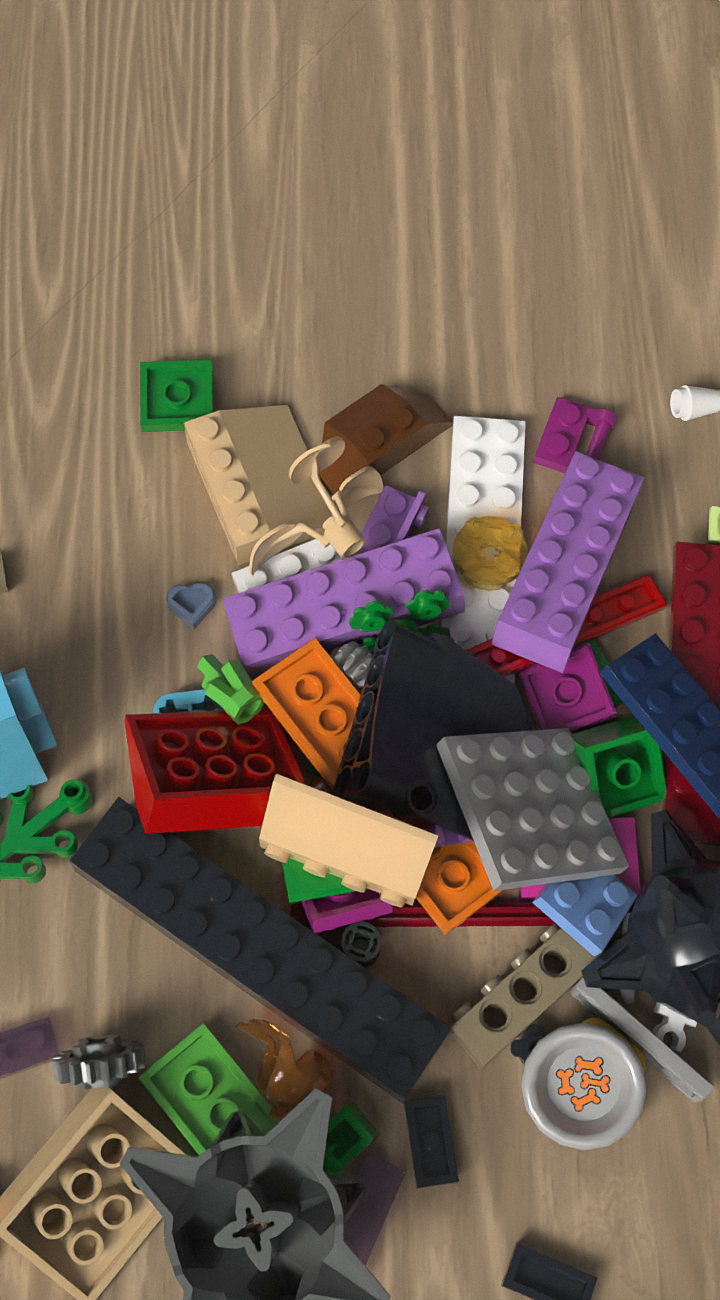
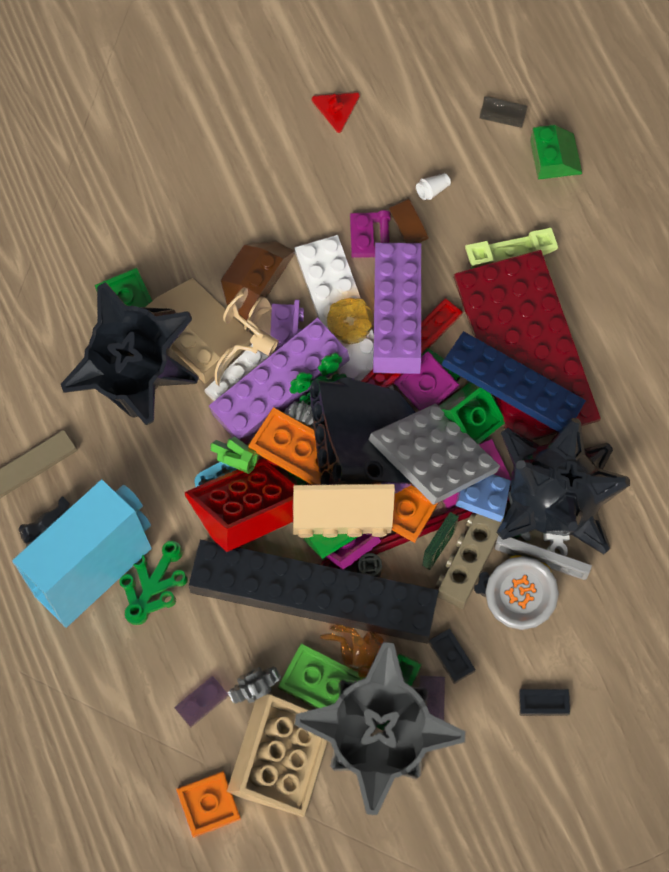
camera: 20 degrees left, 0 degrees up
(136, 478) = (131, 355): none -> black piece
(191, 603) = (188, 416): sand blue tile -> none
(487, 947) = (440, 540): none -> clear green tile
(600, 242) = (336, 108): none -> red piece
(639, 441) = (408, 222): none -> reddish brown slope

